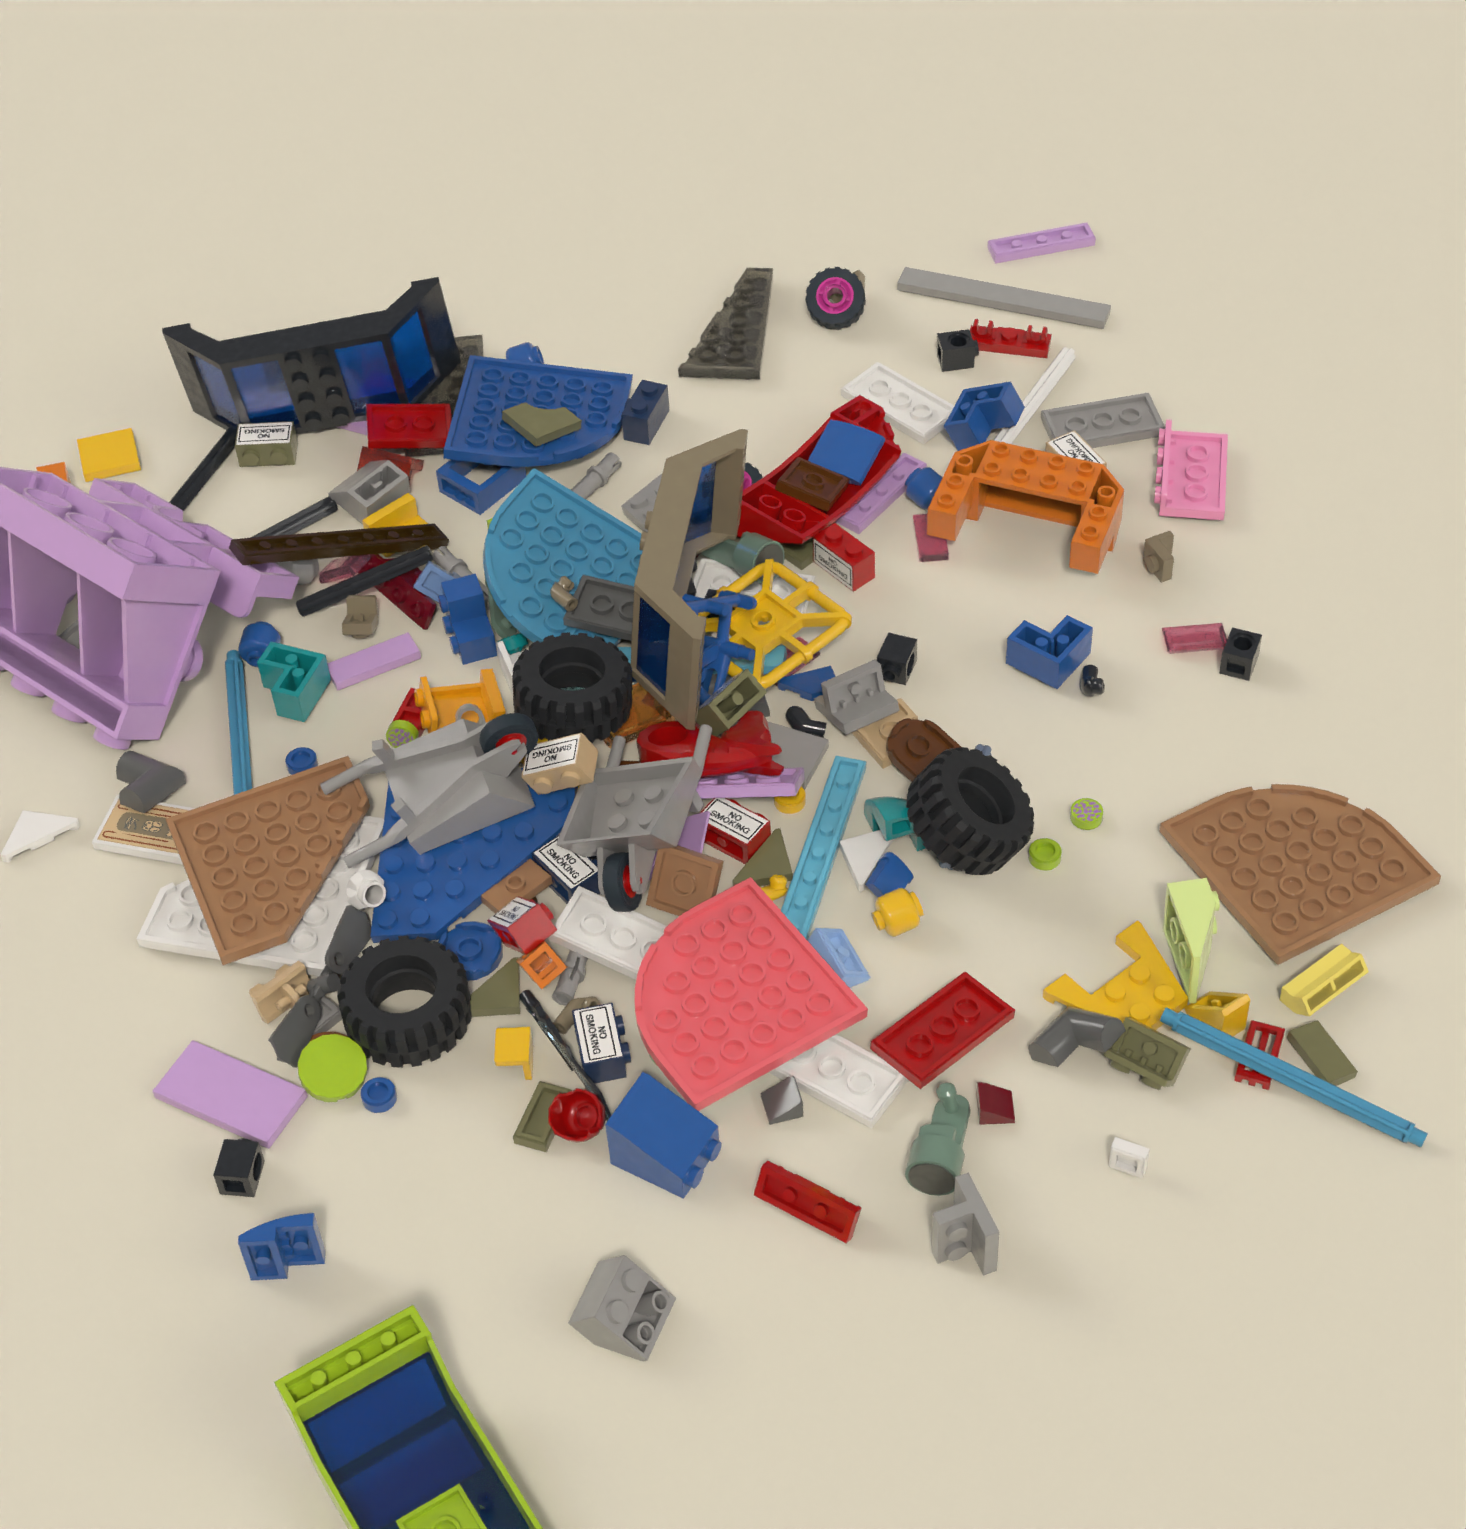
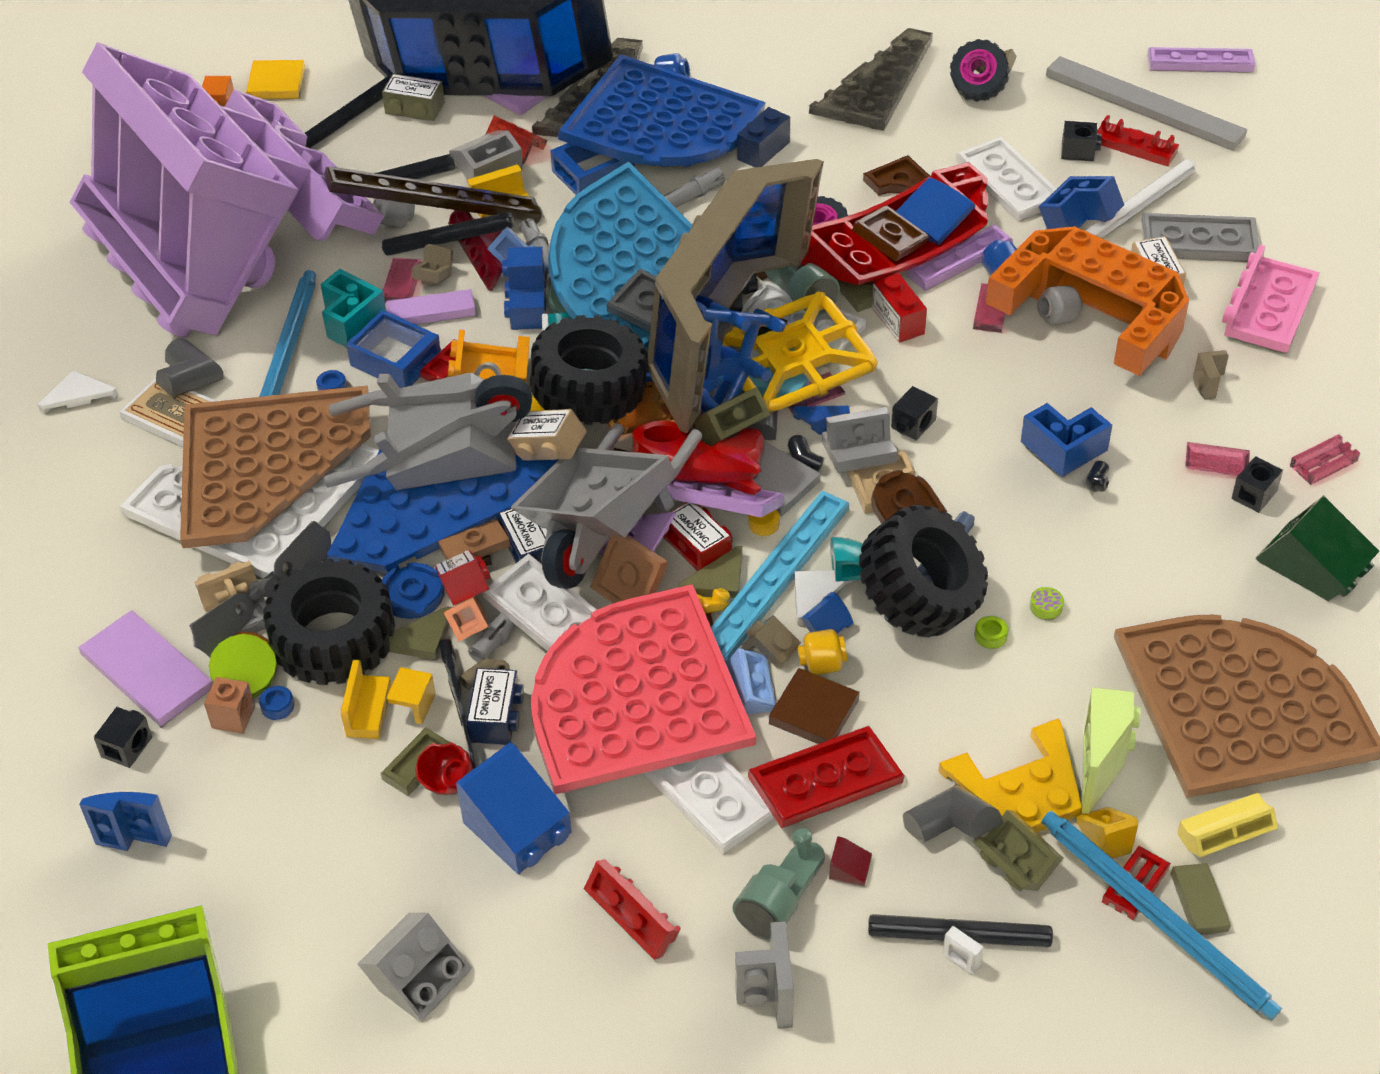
camera: 15 degrees right, 0 degrees up
(255, 641) = (331, 262): blue head -> none
(329, 637) = (399, 281): none -> clear pink tile
(335, 1108) = (229, 705): none -> nougat brick
(342, 568) = (435, 218): clear pink tile -> none
(353, 712) = (393, 348): none -> blue window
(365, 890) = (333, 510): white rock -> none
(400, 733) = (426, 373): lime tile -> none
(407, 425) = (538, 104): red tile -> none
(471, 1074) = (364, 703): none -> yellow panel
(541, 424) = (658, 127): olive tile -> none
(560, 593) = (612, 281): dark tan arm -> none
(783, 1101) = (645, 806): dark grey slope -> none
(791, 424) = (895, 176): none -> reddish brown tile
(843, 912) = (771, 640): none -> dark tan bracket
(905, 967) = (813, 707): none -> reddish brown tile
(996, 519) = (1059, 304): none -> light grey head
(1101, 1143) = (980, 931): none -> black axle
(1284, 617) = (1320, 456): none -> clear pink tile
(1319, 704) = (1320, 551): none -> dark green slope

